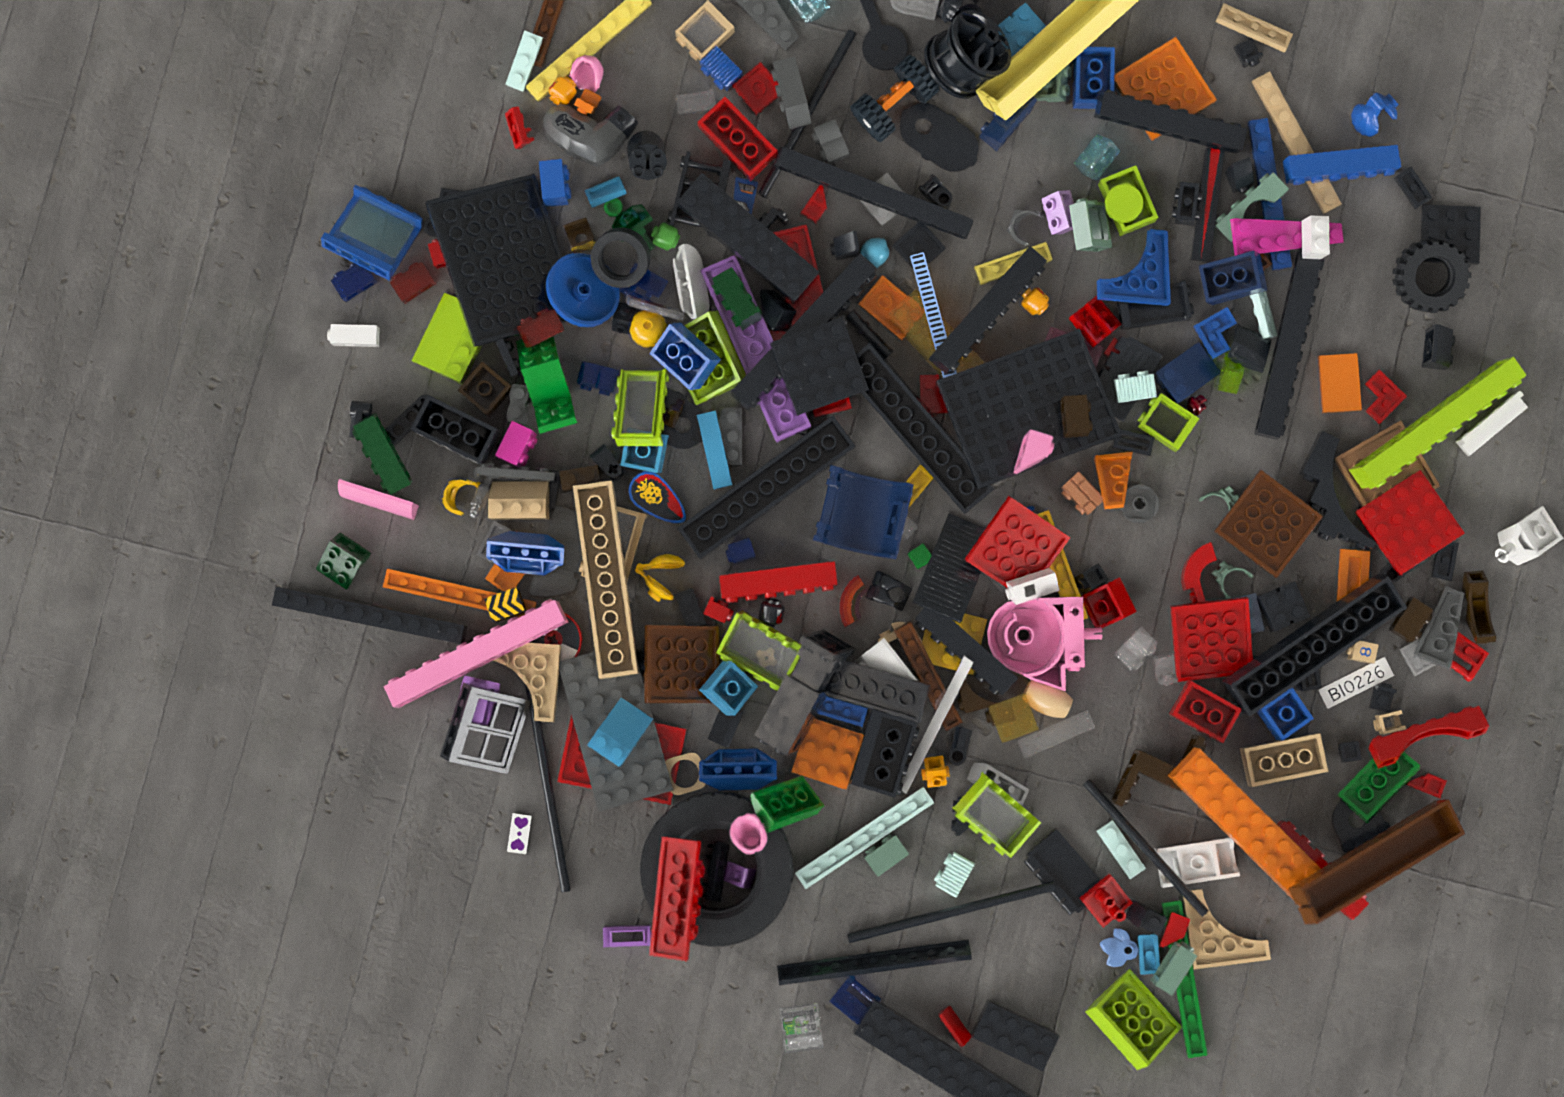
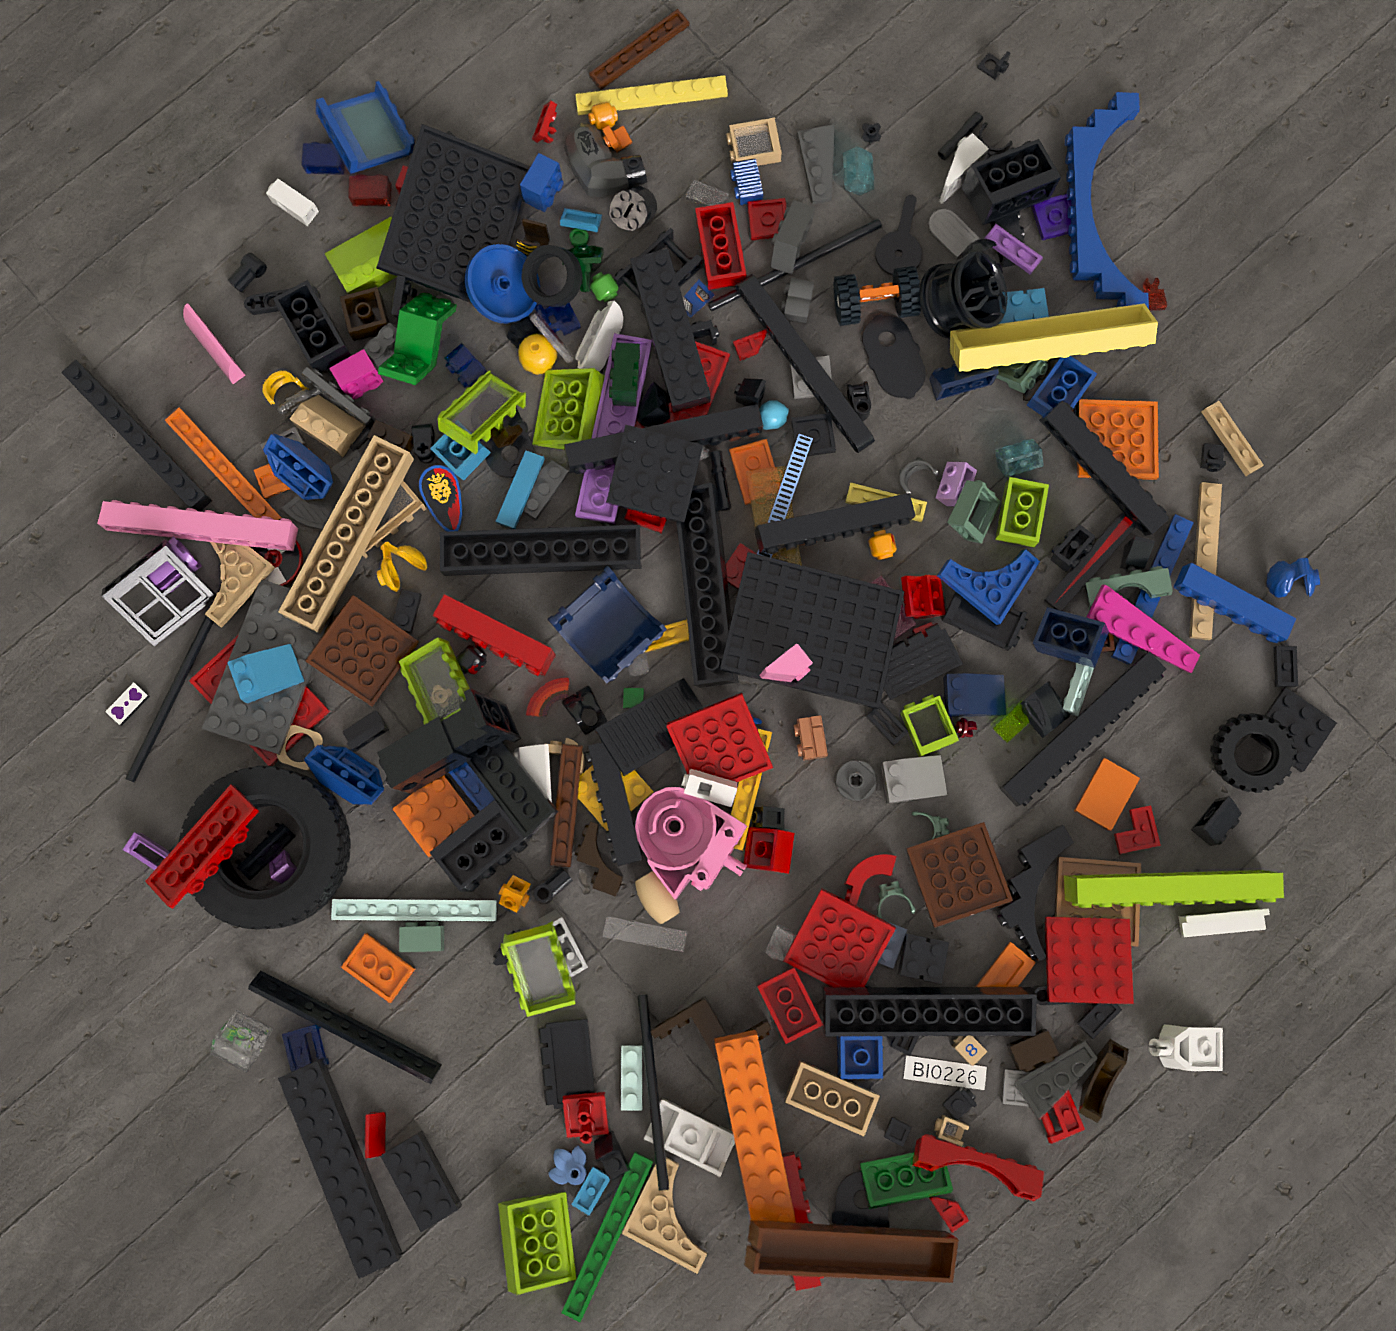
camera: 35 degrees right, 5 degrees down
(342, 560) = (148, 375): dark green bracket -> none
(382, 454) = (240, 307): dark green brick -> none
(505, 605) = (250, 500): piece -> none
(524, 61) = (588, 72): light aqua plate -> none
(540, 328) = (443, 289): clear red brick -> none
(587, 73) = (633, 113): bright pink hair -> none
(685, 356) = (548, 392): blue brick -> none
(718, 611) = (426, 627): red brick -> none
(728, 688) = (387, 698): dark azure brick -> none
(740, 552) = (480, 589): clear blue brick -> none
(748, 833) = (304, 832): bright pink hair -> none
(785, 803) = (361, 831): green slope -> none
(866, 901) = (378, 967): none -> orange tile
(936, 723) = (543, 851): white sticker -> none
(951, 912) = (443, 1029): black piece -> none
(954, 873) = (469, 997): light aqua brick -> none
(1013, 718) = (613, 892): clear yellow plate -> none
(1075, 416) = (848, 662): dark brown brick -> none
(1113, 478) = (847, 742): orange wing -> none
(1123, 203) = (1016, 509): lime tile -> none
(1135, 387) = (919, 674): light aqua brick -> none
(1136, 648) = (766, 906): clear brick -> none
(1174, 967) = (601, 1220): sand green window -> none
(1175, 929) = (629, 1184): red tile -> none
(1183, 472) = (913, 779): none -> light grey slope
(1211, 329) = (1020, 672): blue plate -> none
(1315, 237) = (1168, 649): white brick -> none

